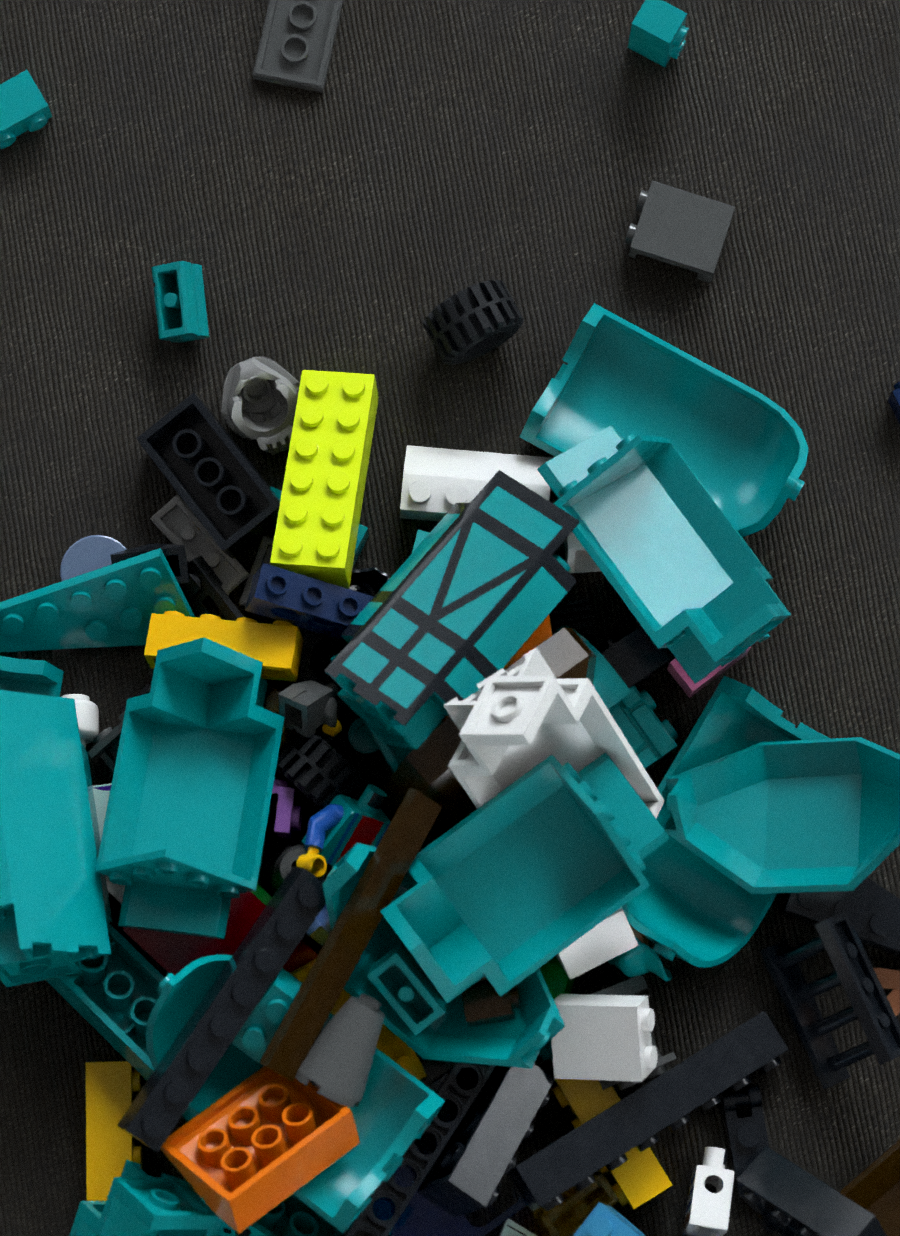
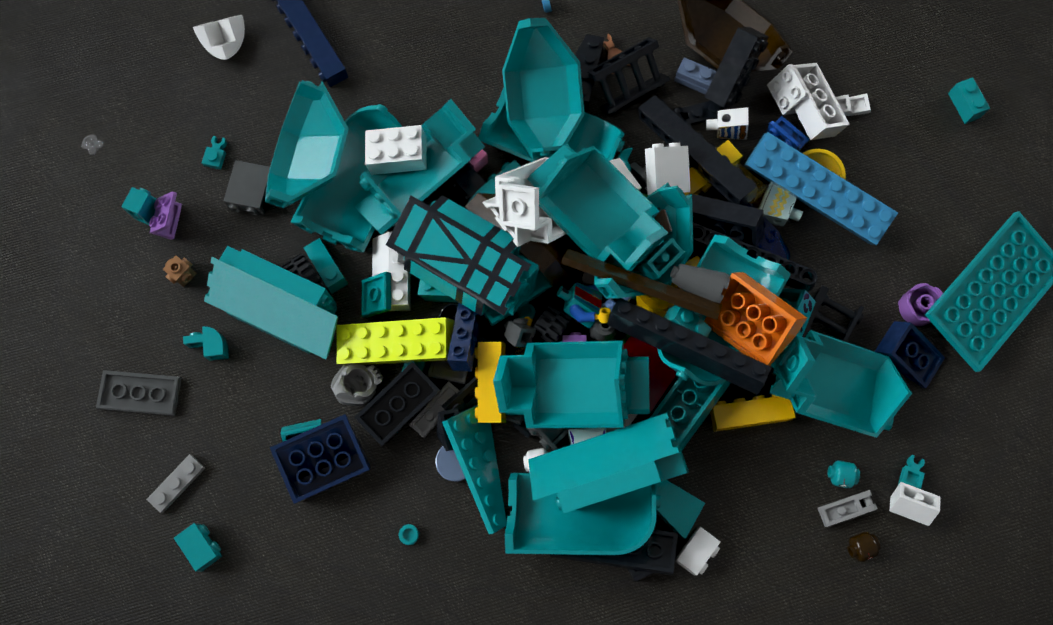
camera: 95 degrees left, 5 degrees down
(128, 77) = (175, 483): none -> light grey plate
(128, 330) = (320, 458): none -> dark blue slope
(381, 151) = (213, 343): none -> teal brick
(430, 453) = (376, 294): none -> teal tile
(434, 260) = (273, 301): none -> teal panel
(505, 363) = (325, 266): none -> teal slope
(521, 105) = (179, 270): none -> medium nougat brick
(634, 73) = (166, 216): none -> medium lavender bracket
(707, 510) = (395, 150): none -> white brick
(730, 338) = (307, 146): none -> teal panel
(758, 168) = (215, 156): none -> teal plate
(829, 1142) = (694, 75): none -> sand blue brick

